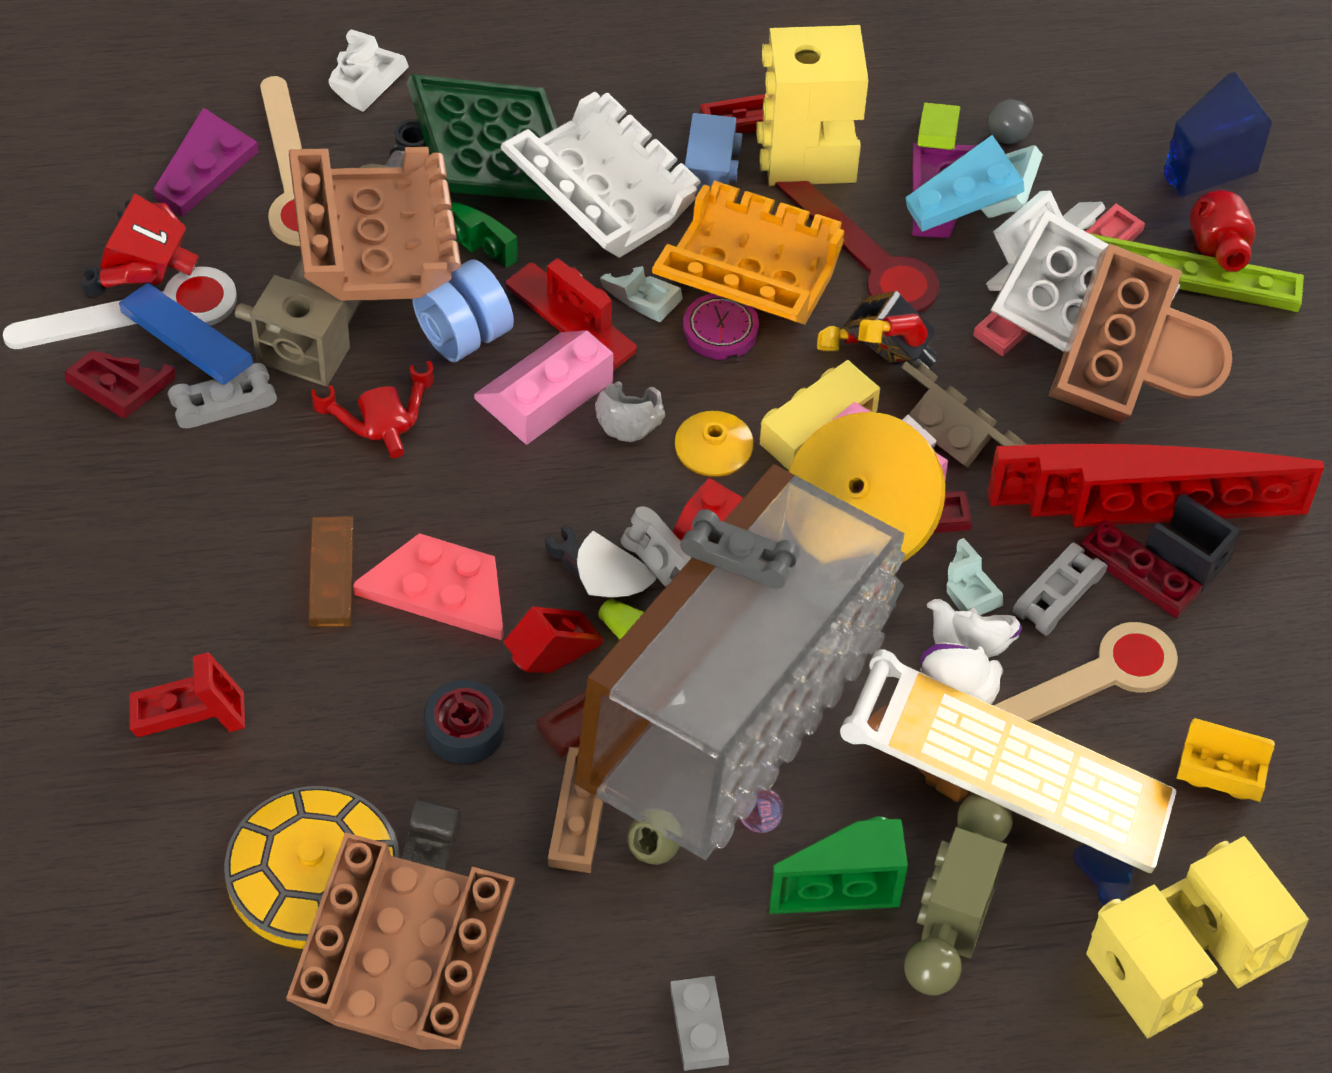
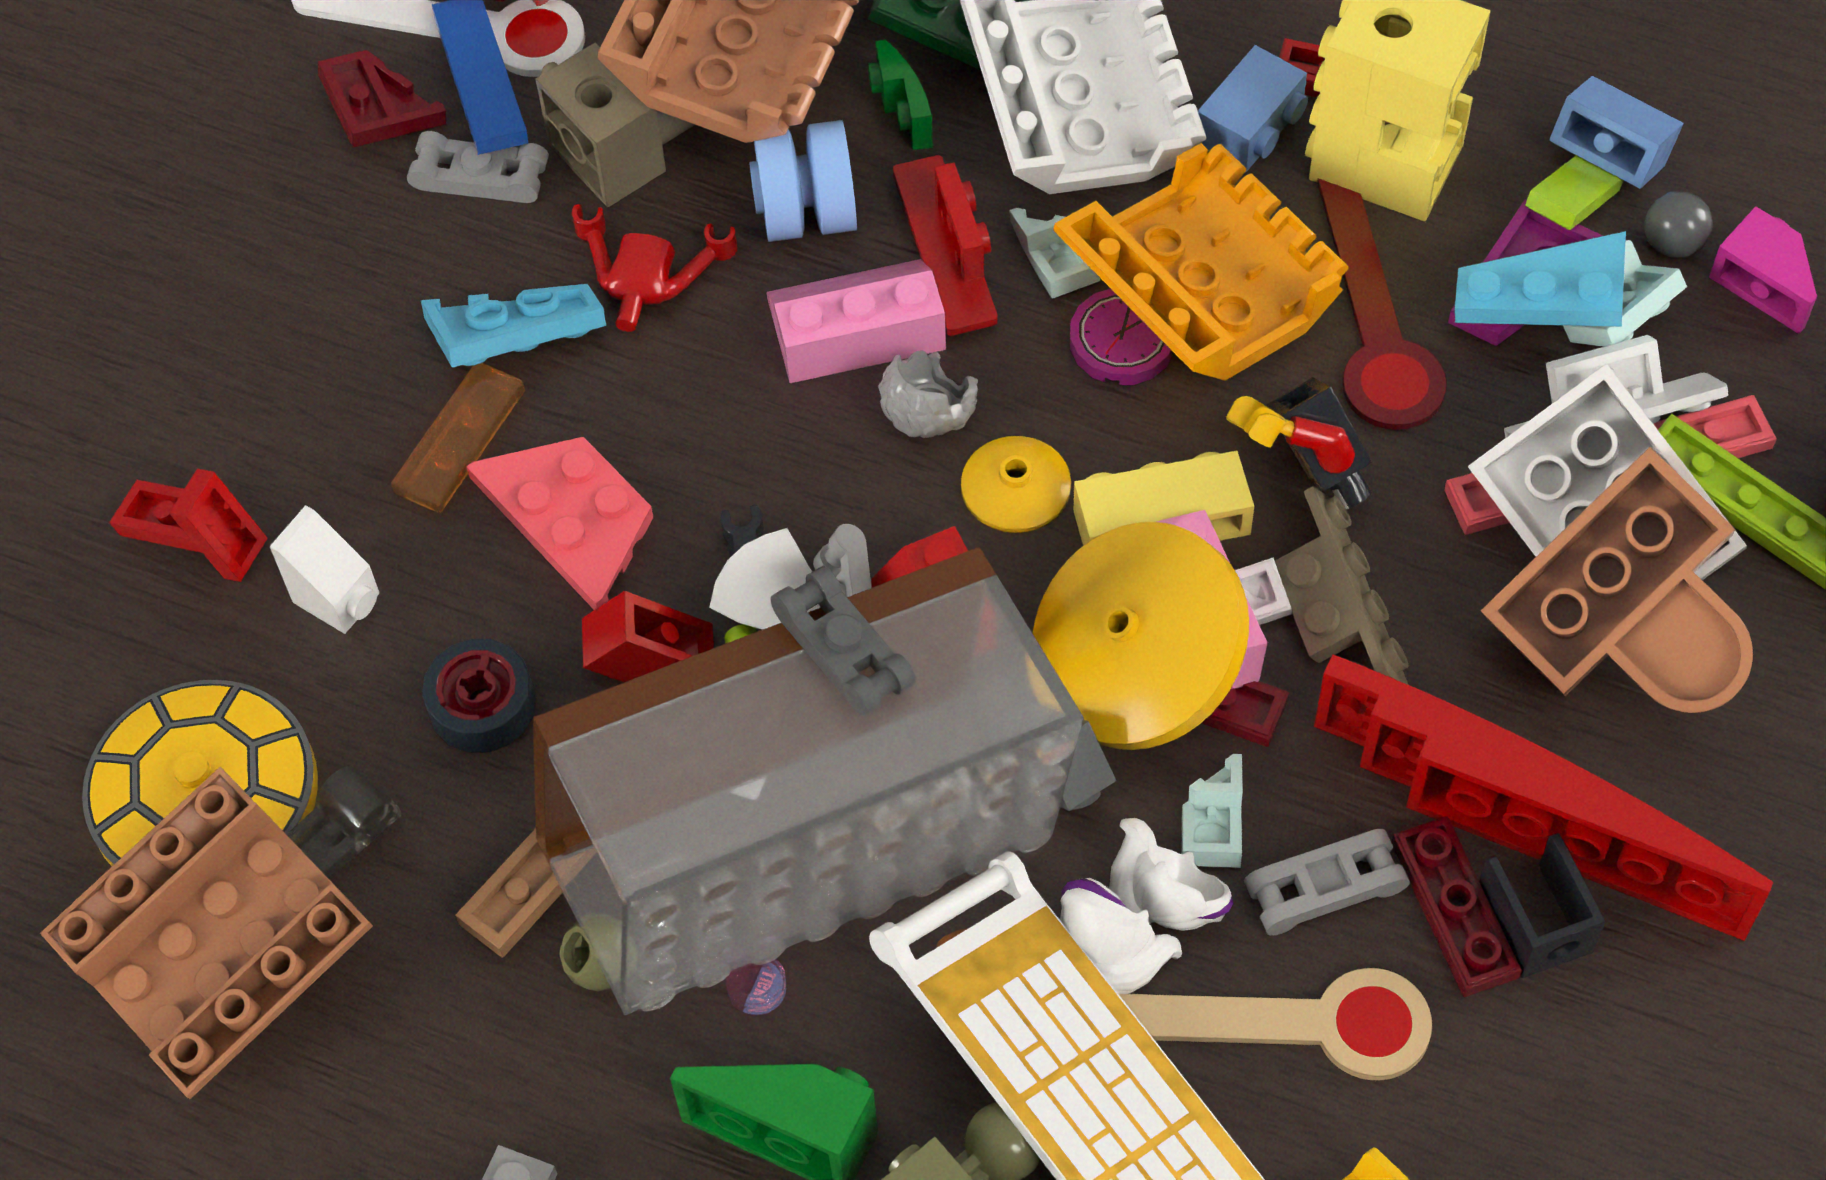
camera: 35 degrees right, 5 degrees up
(307, 494) = (495, 327): none -> medium azure wing
(313, 691) = (324, 571): none -> white slope
(941, 81) = (1616, 131): none -> medium blue brick
(1080, 127) = (1768, 268): none -> dark pink slope

